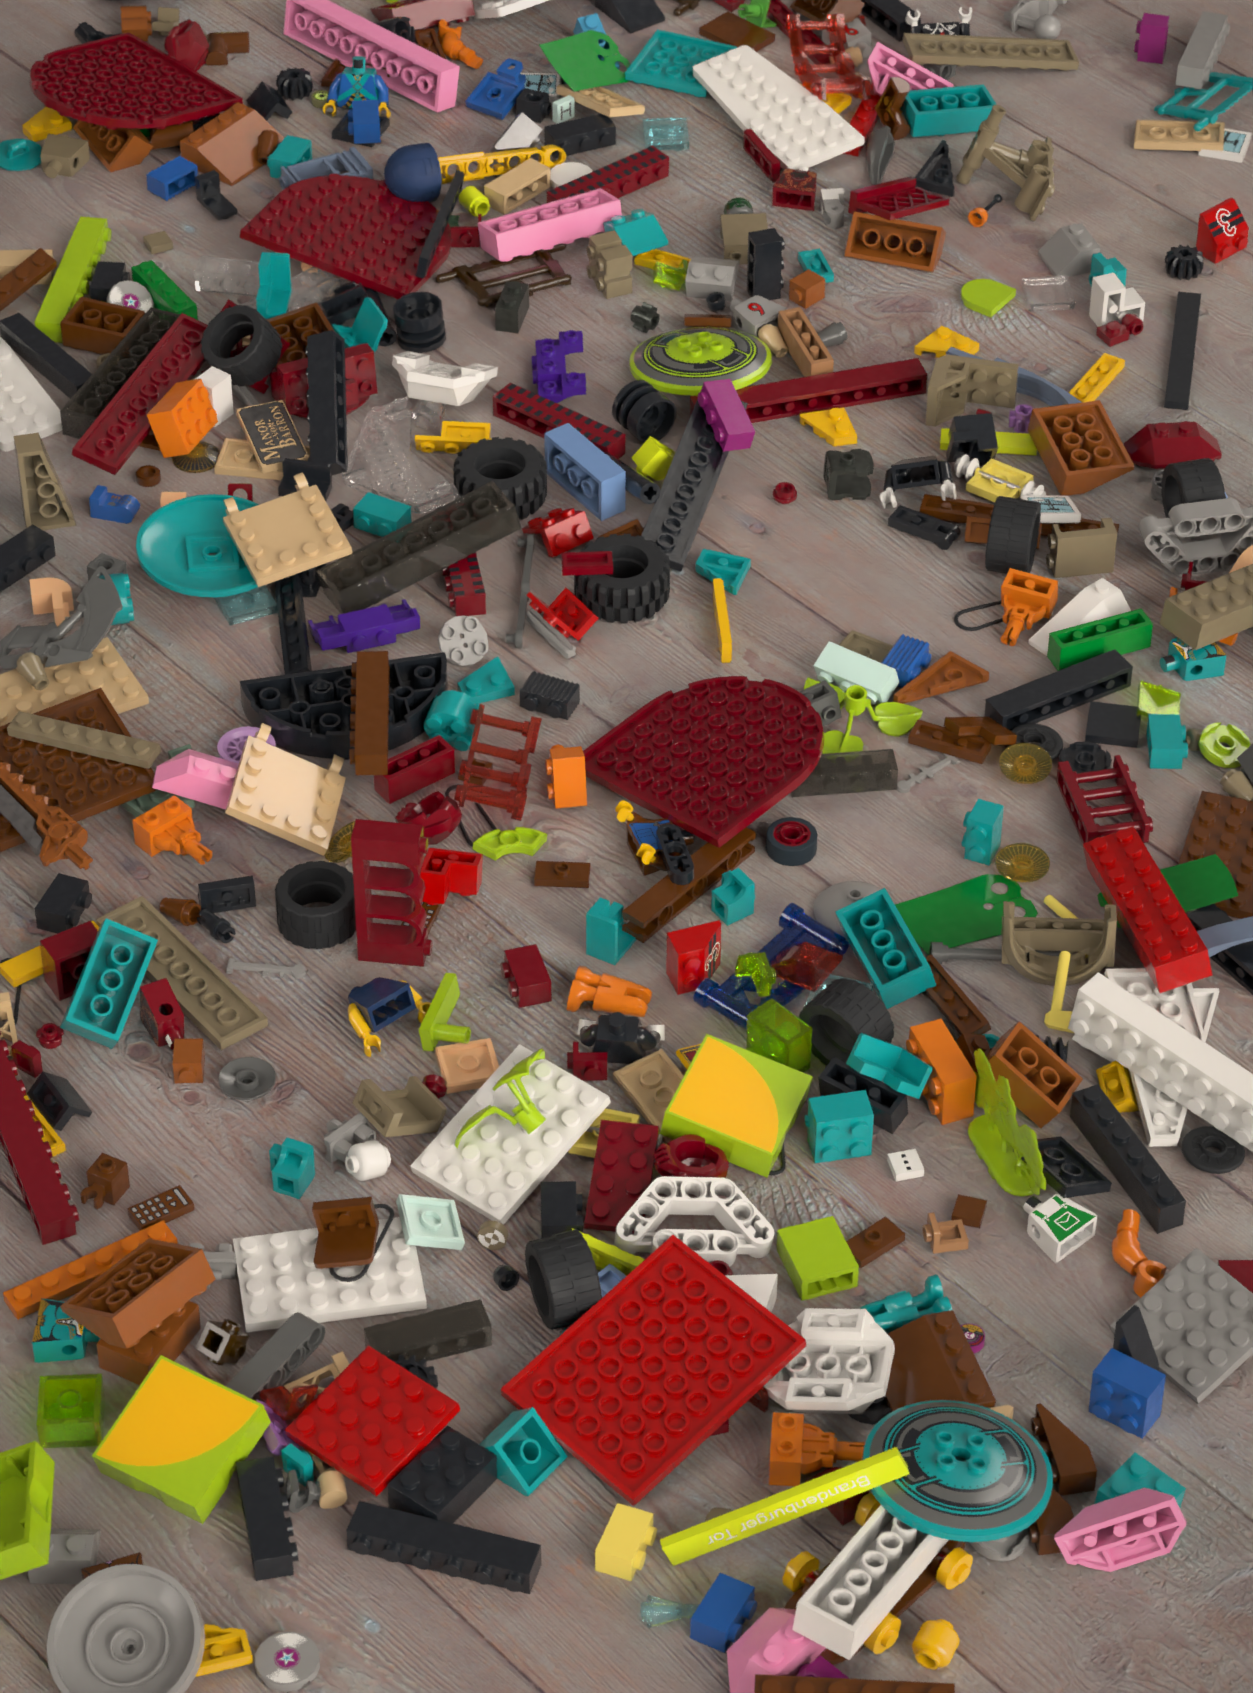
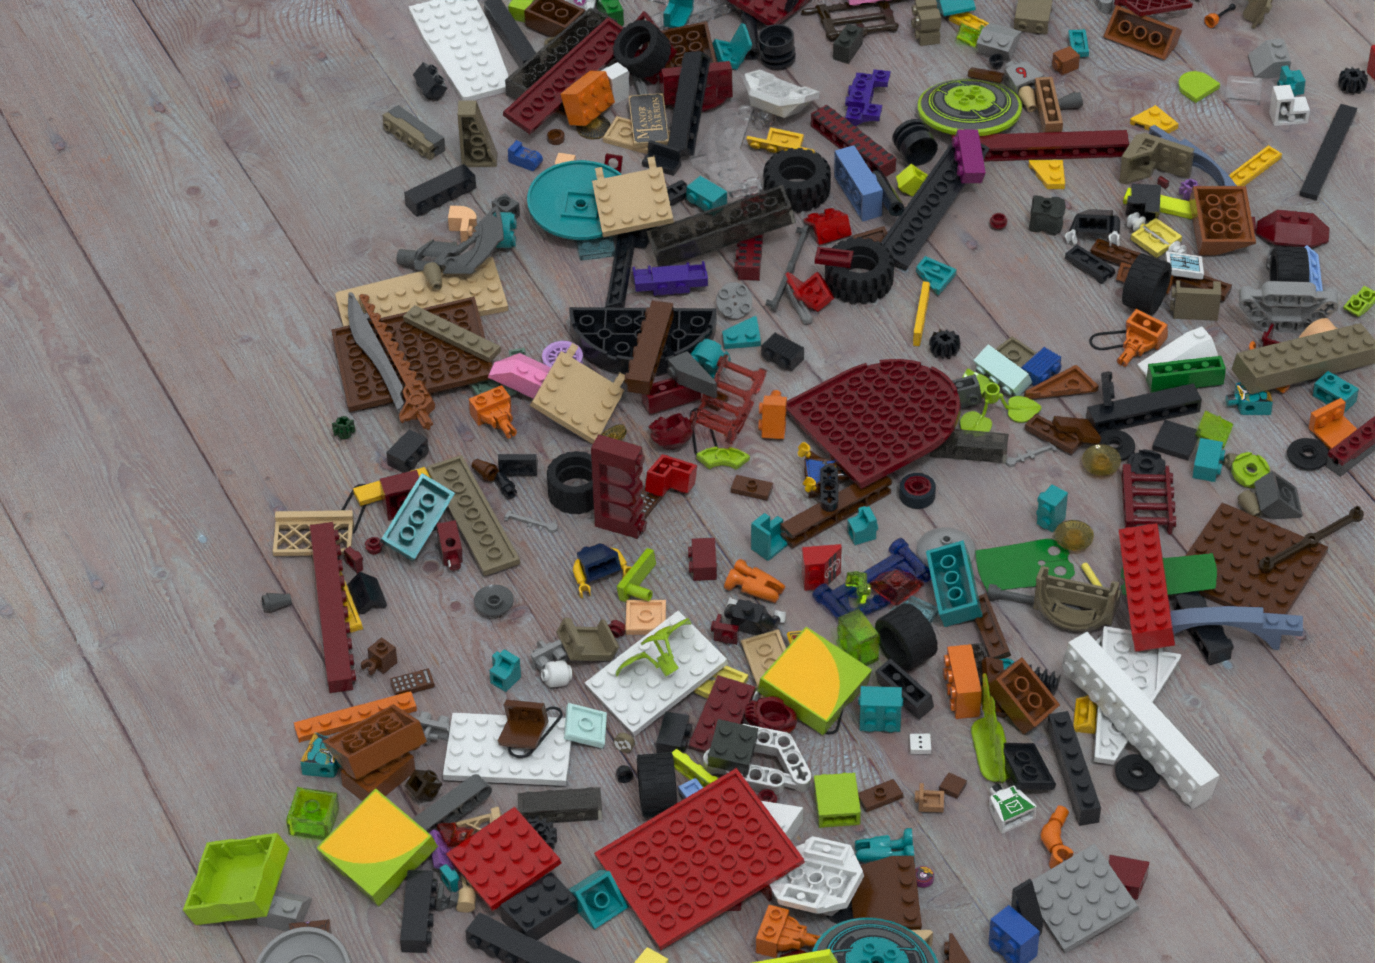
camera: 15 degrees right, 5 degrees up
(188, 1060) = (459, 580): dark orange brick -> none
(344, 303) = (728, 24): black slope -> none
(440, 738) = (690, 373): none -> dark grey slope
(645, 317) = (940, 66): pearl dark grey gear -> none
(657, 1207) = (732, 746): none -> pearl dark grey brick
(765, 264) = (1037, 39): black brick -> none
(766, 652) = (944, 343): none -> black gear
(889, 1064) = (926, 670): teal panel -> none
(1005, 673) = (1107, 388): none -> black plate
(1056, 1017) = (1058, 655): light yellow piece -> none
(1116, 333) = (1284, 130): dark red plate -> none

